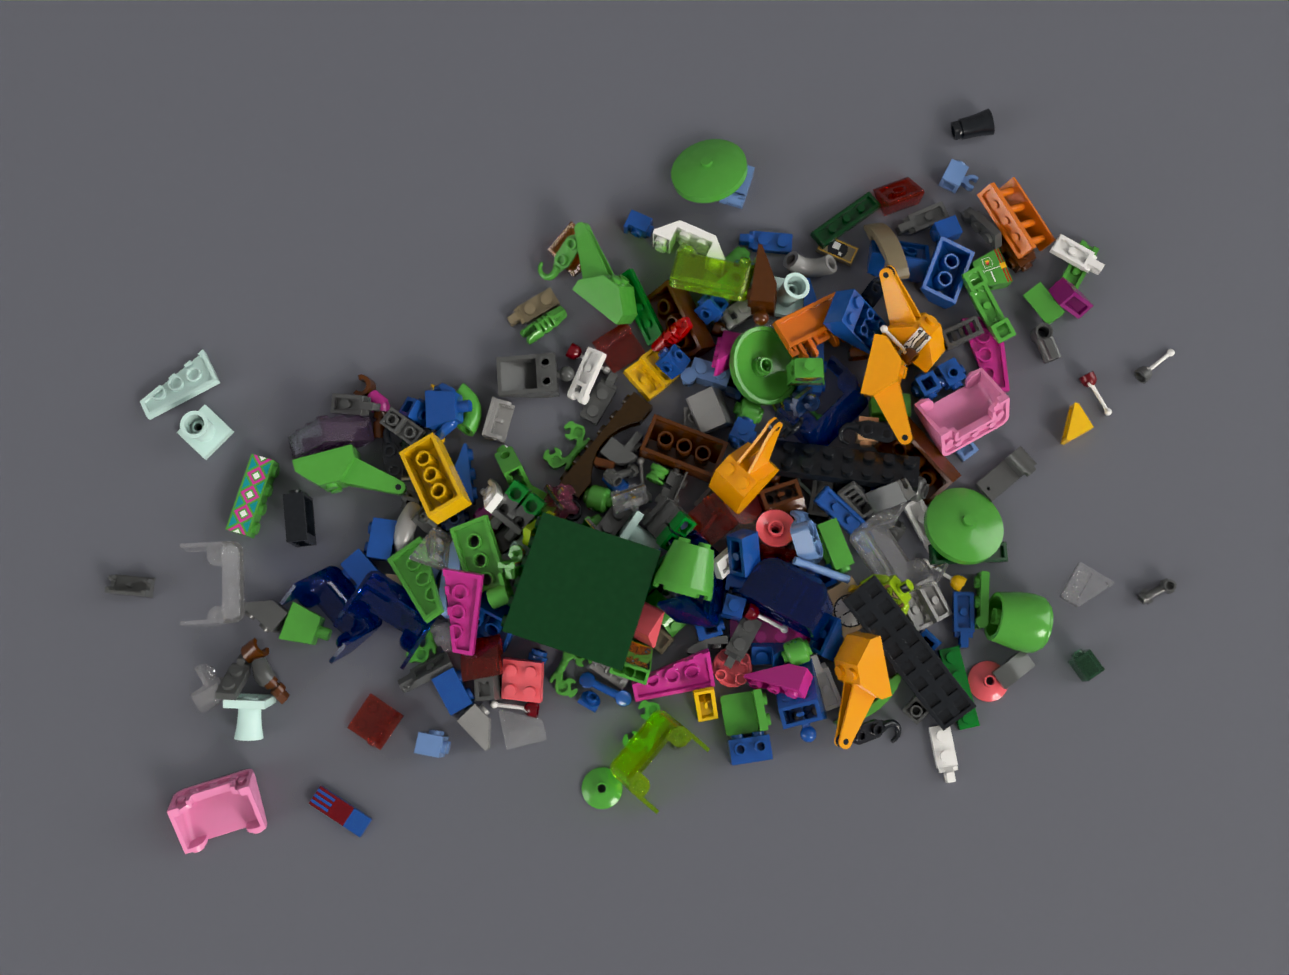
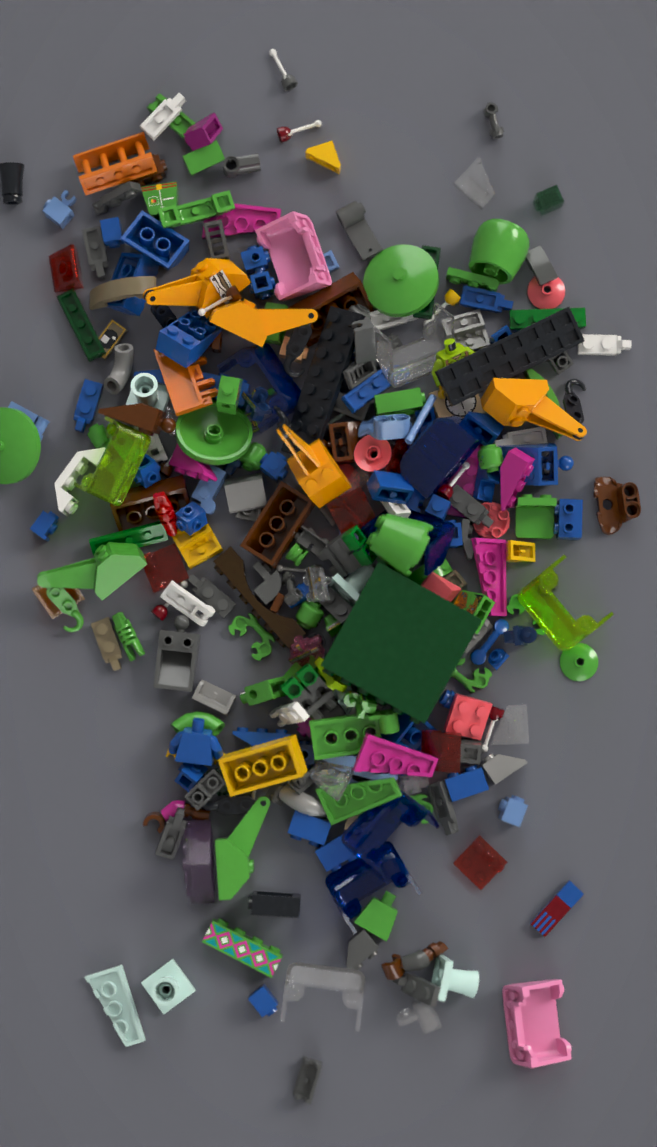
camera: 75 degrees left, 5 degrees up
(202, 527) = (263, 1001): none -> blue brick
(616, 718) = (520, 635): none -> dark blue hips
(759, 796) = (612, 519): none -> reddish brown piece

